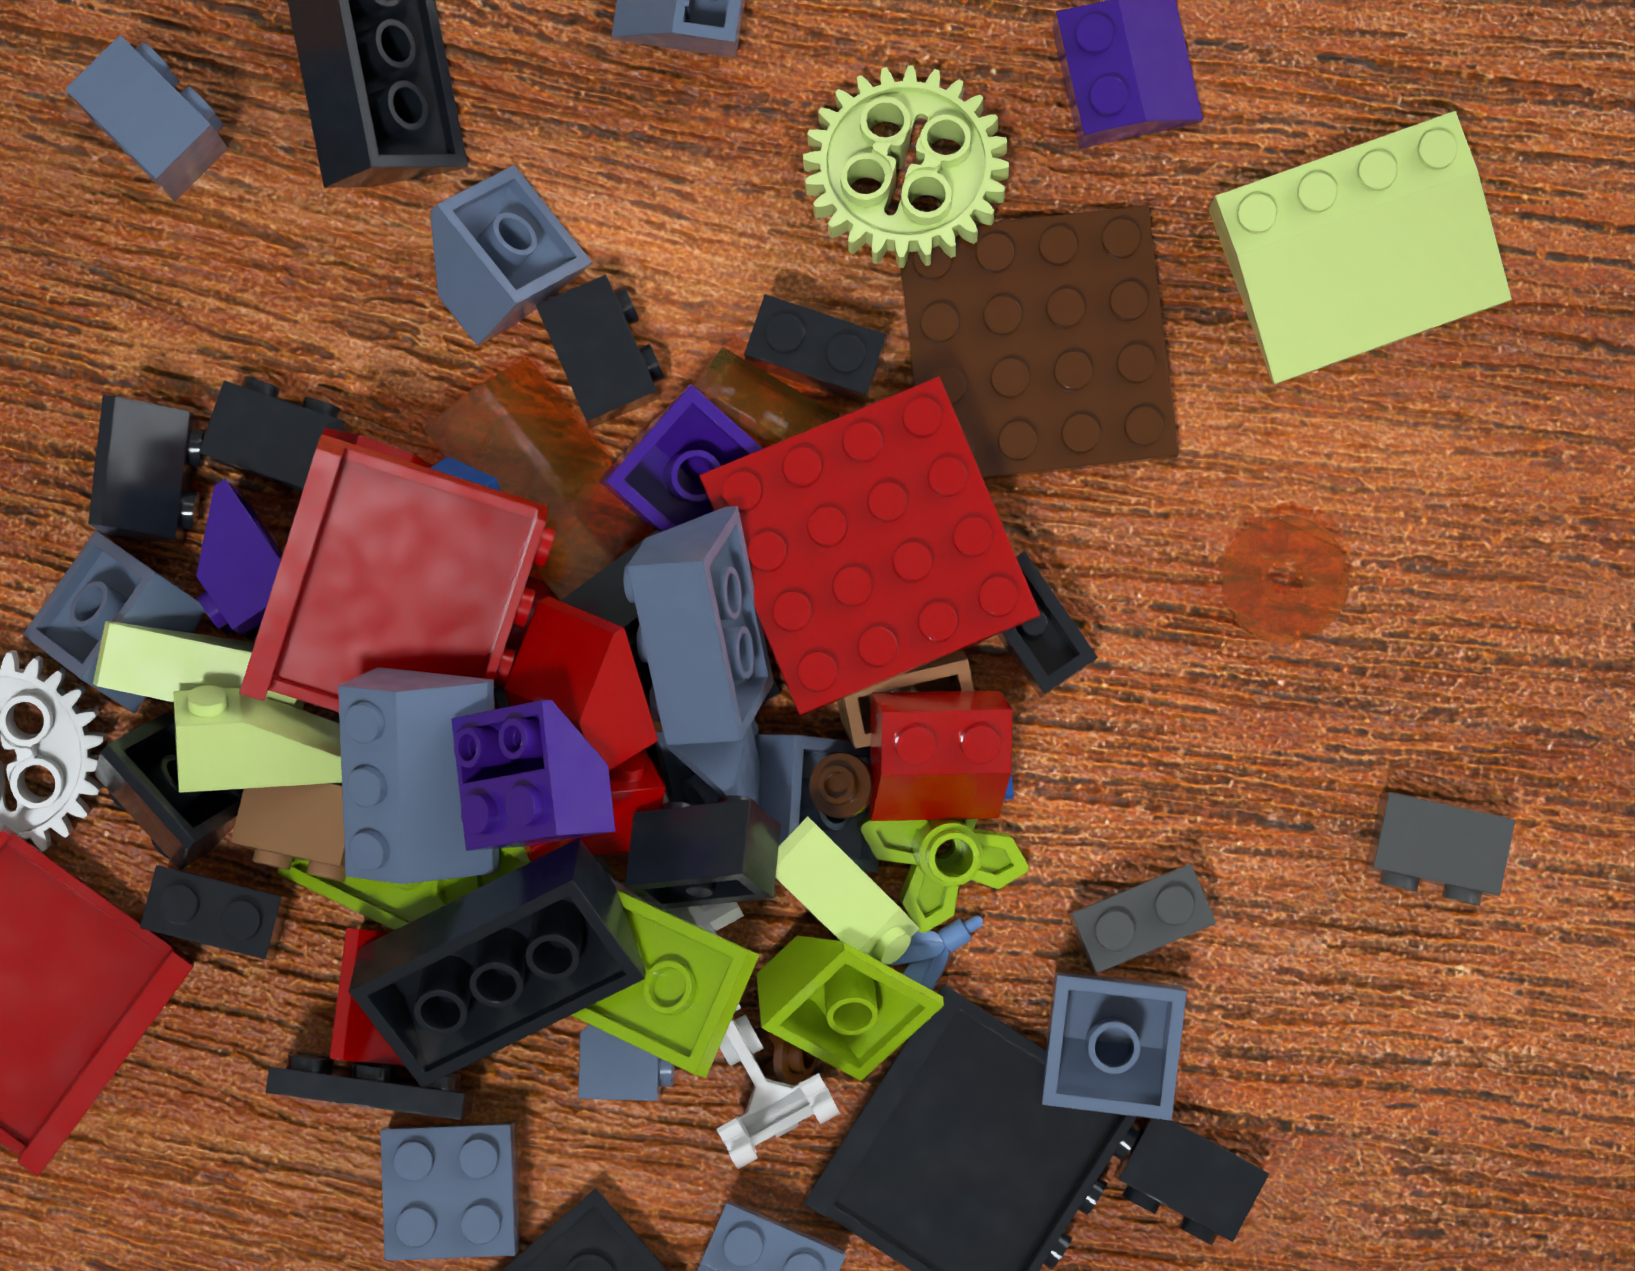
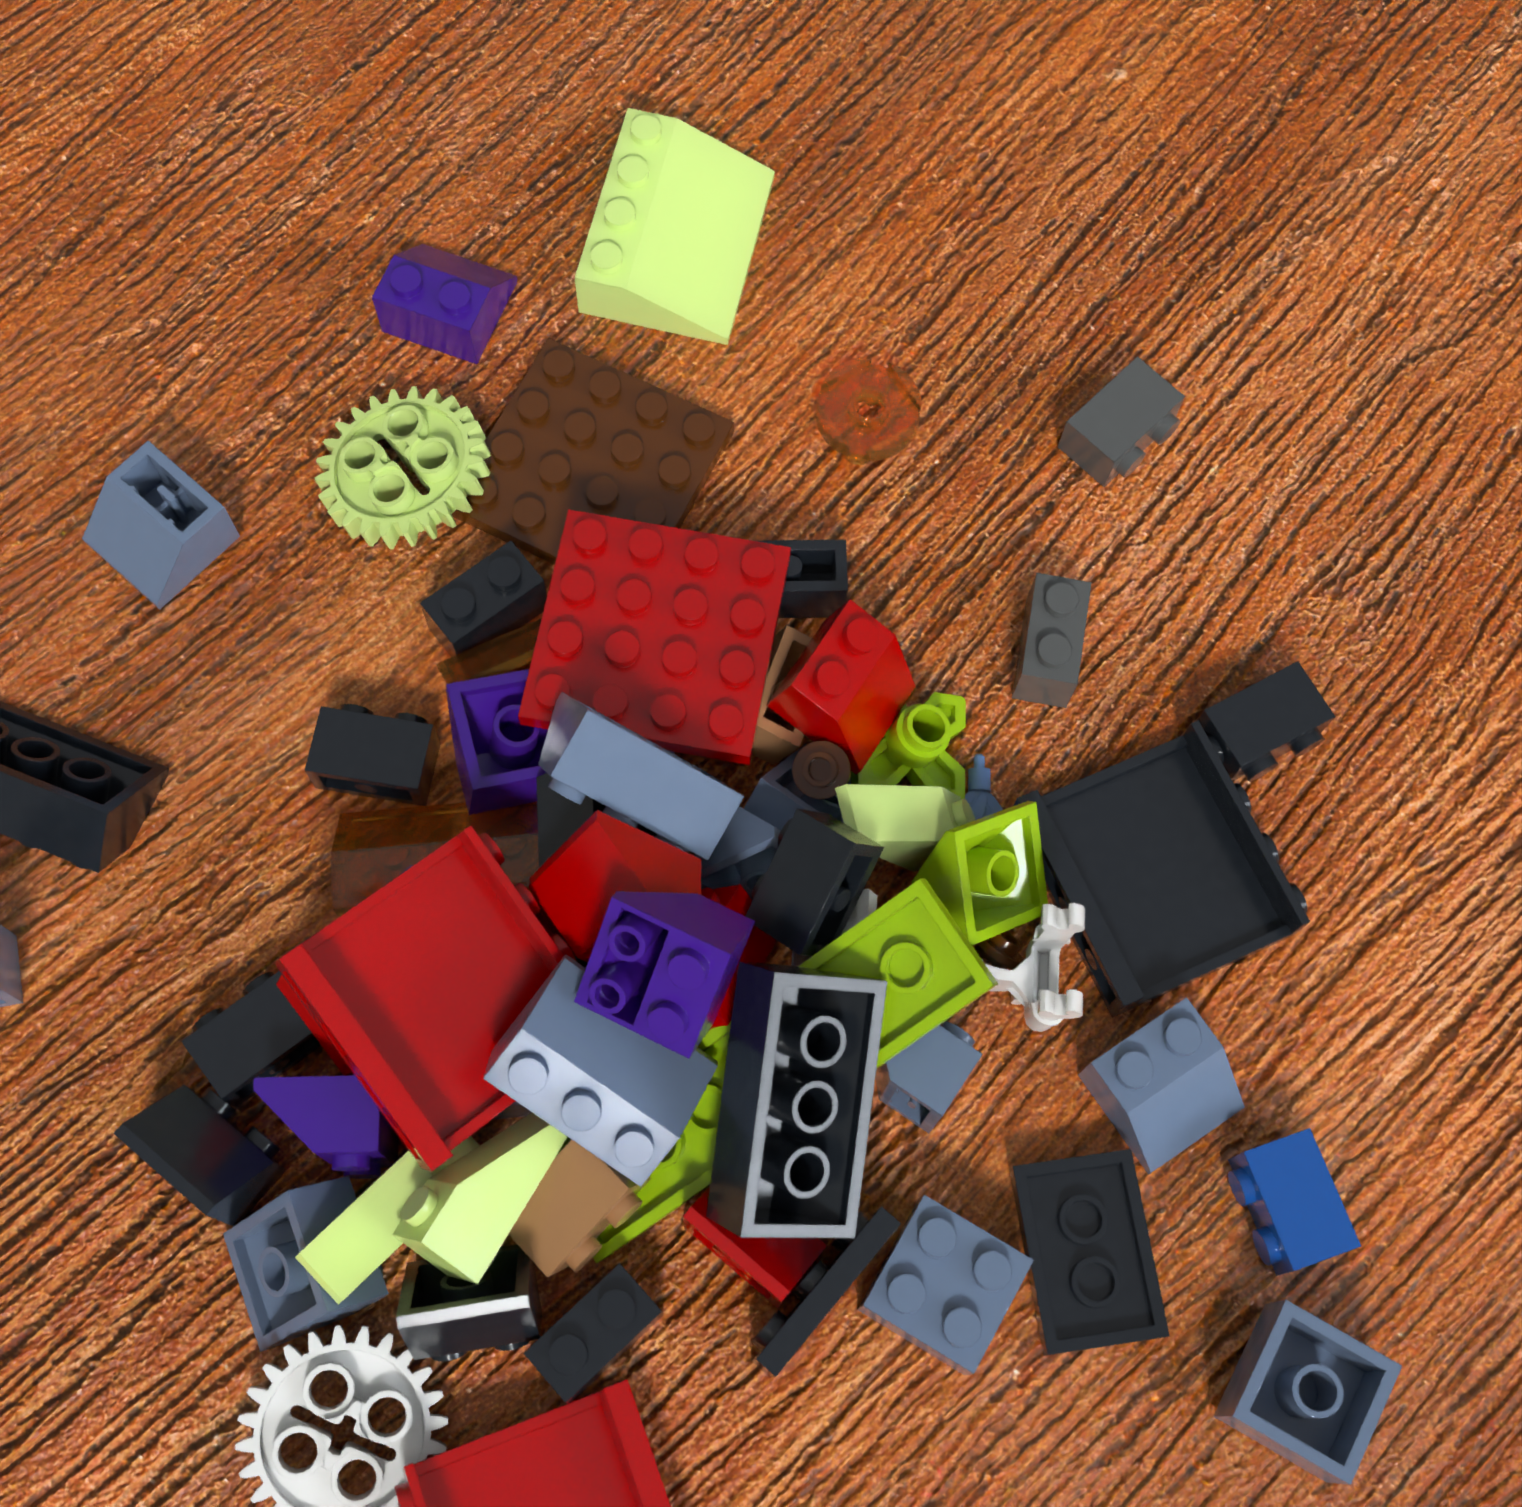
camera: 60 degrees left, 15 degrees down
(500, 254) = (249, 781): sand blue slope -> none
(1113, 1045) = (1135, 710): sand blue slope -> none

